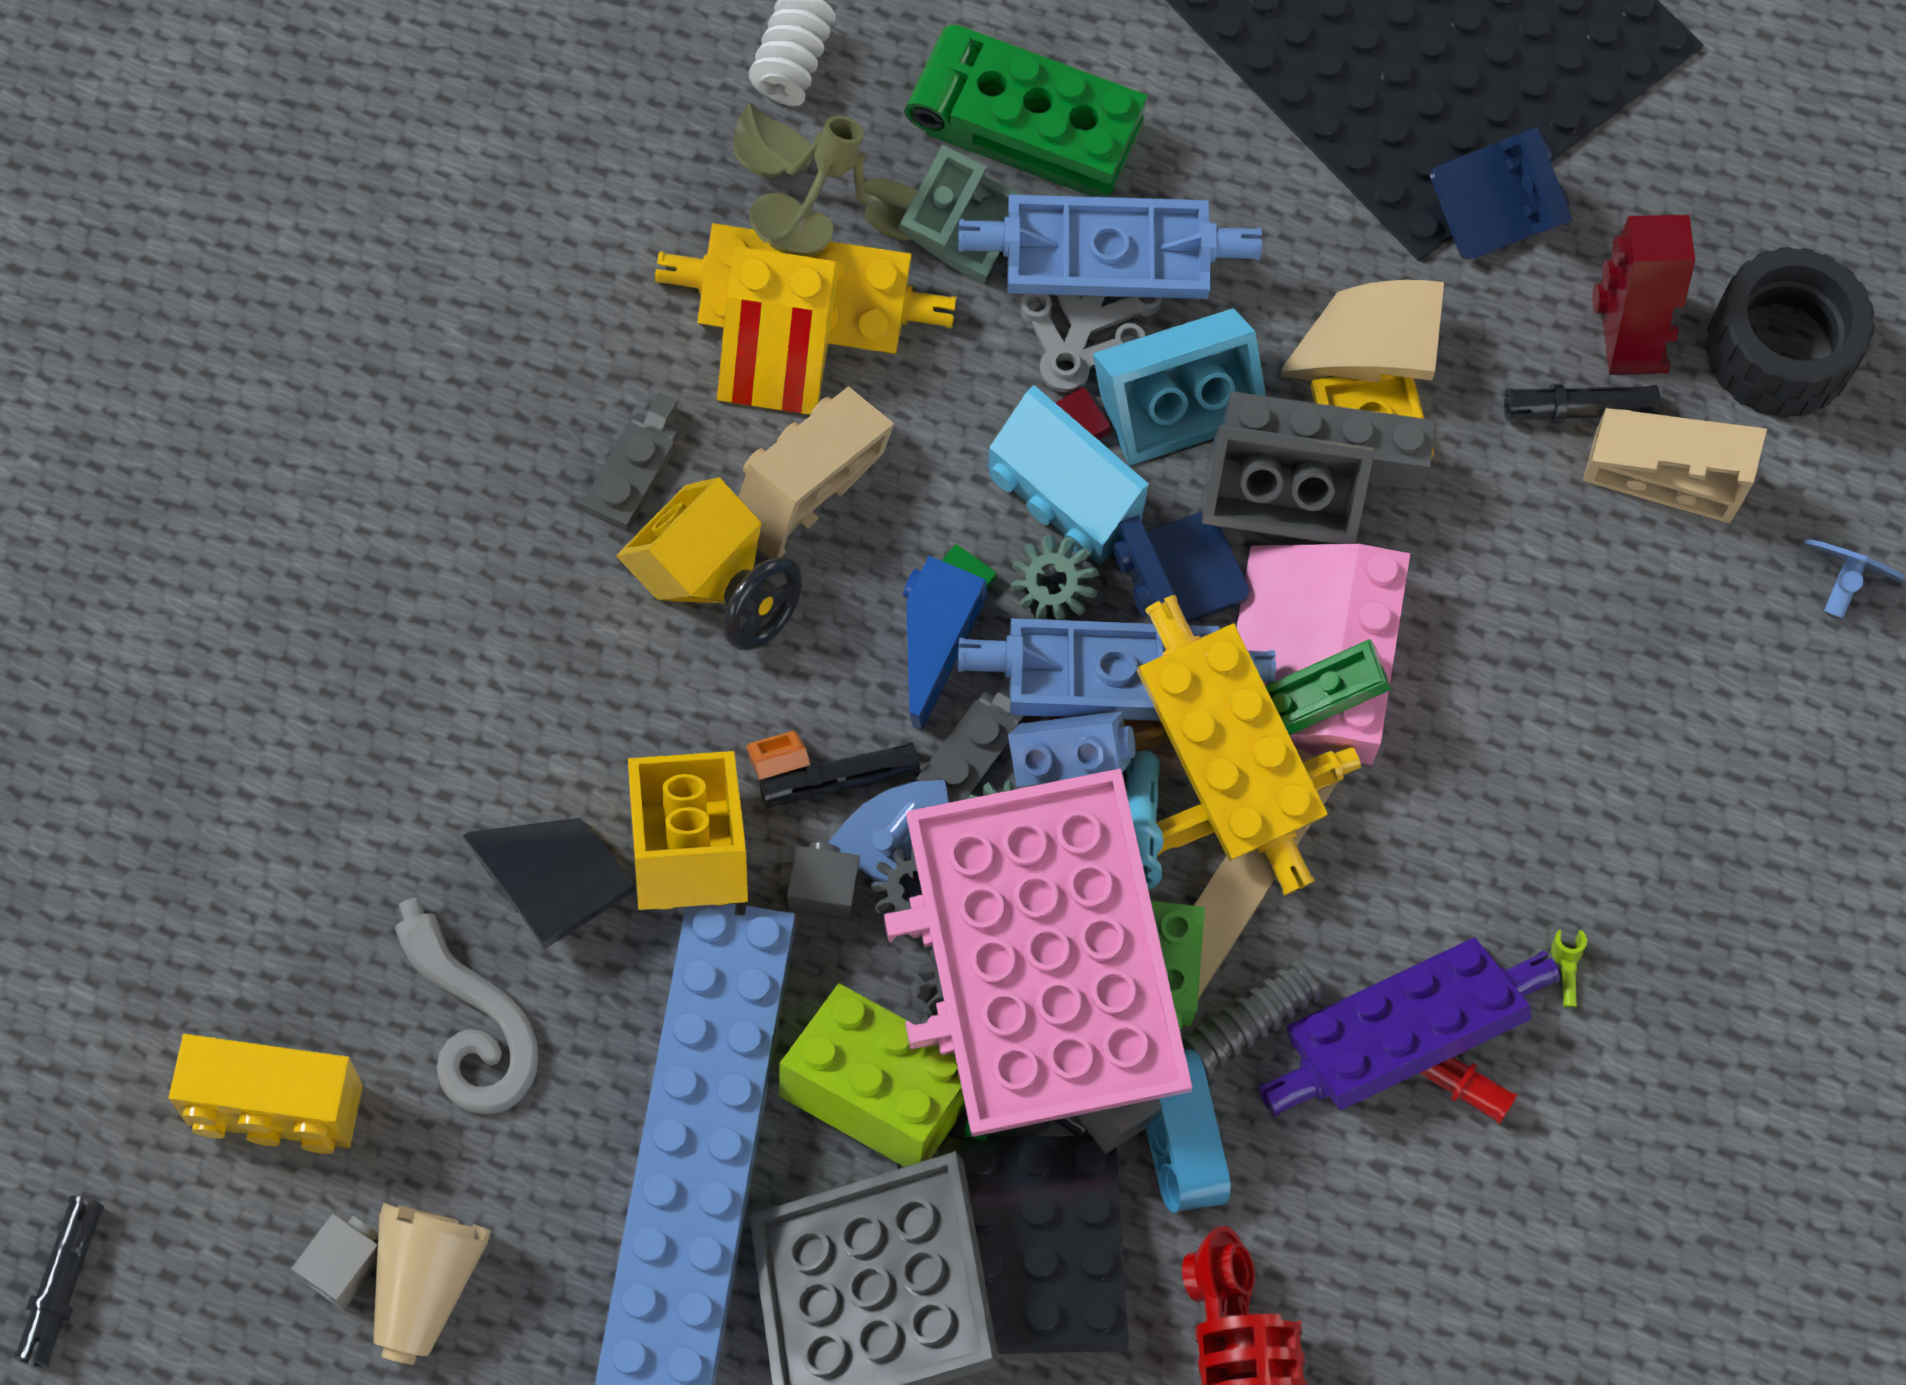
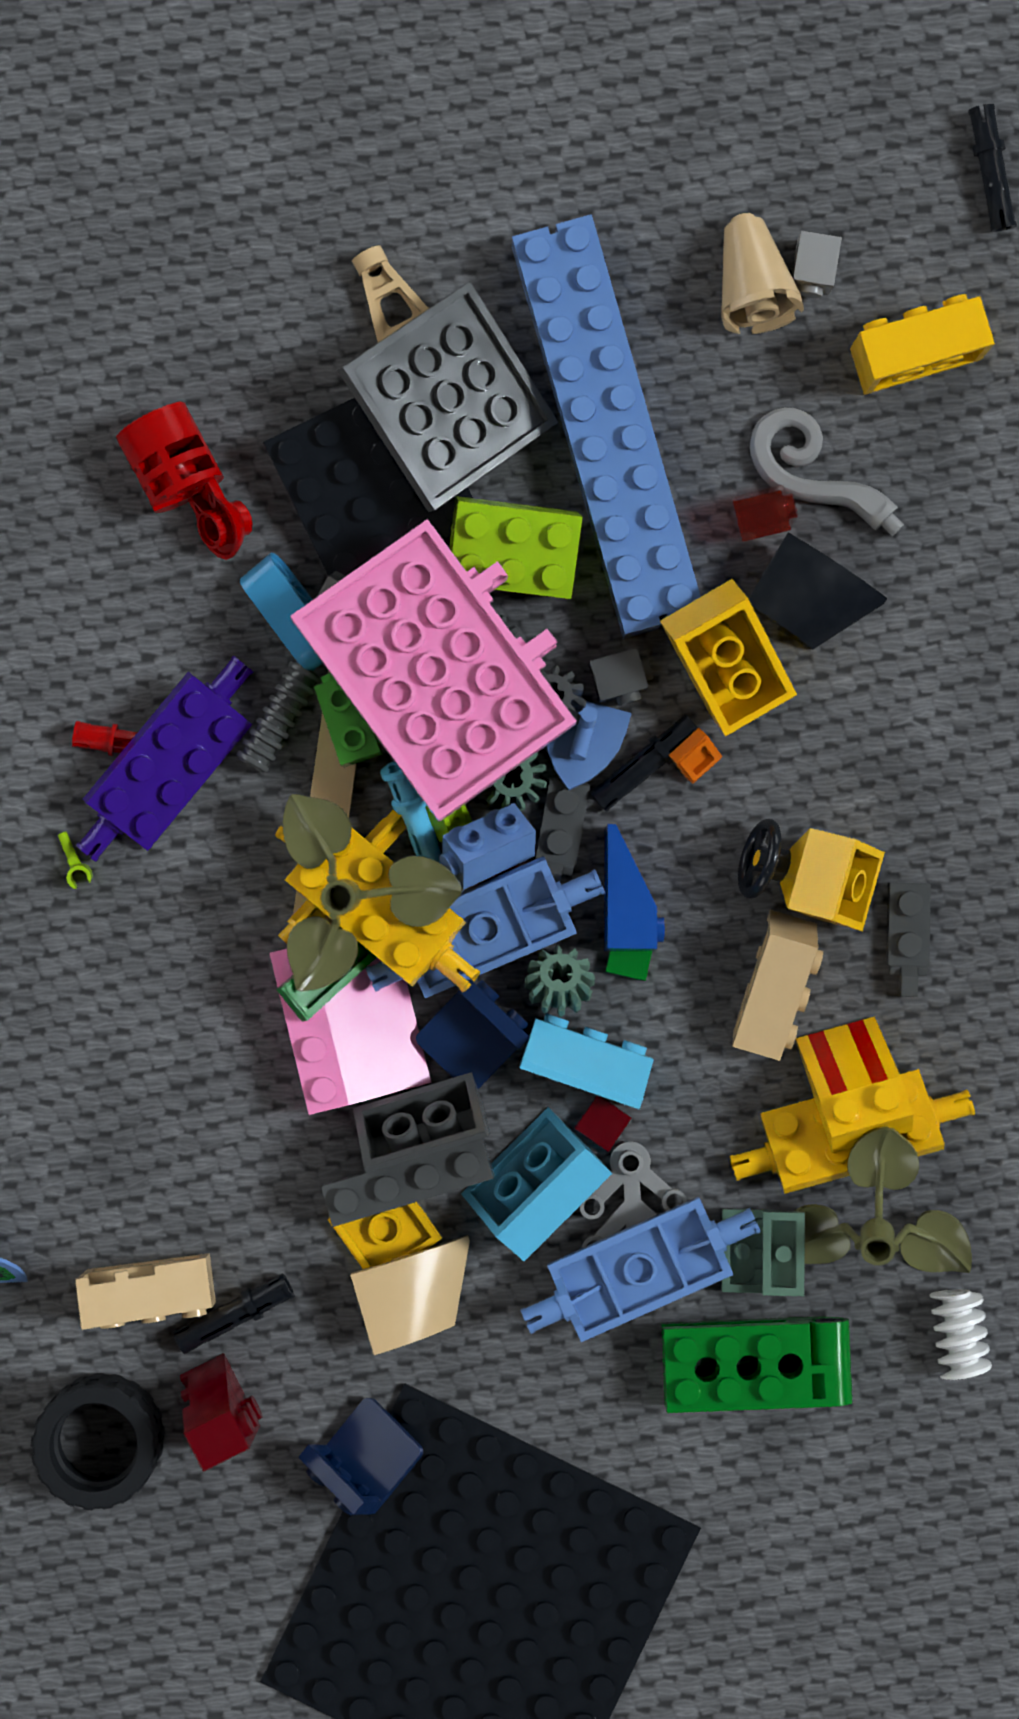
camera: 155 degrees right, 20 degrees up
(556, 987) = (765, 512): none -> clear red brick
(1317, 701) = (319, 950): none -> olive plant

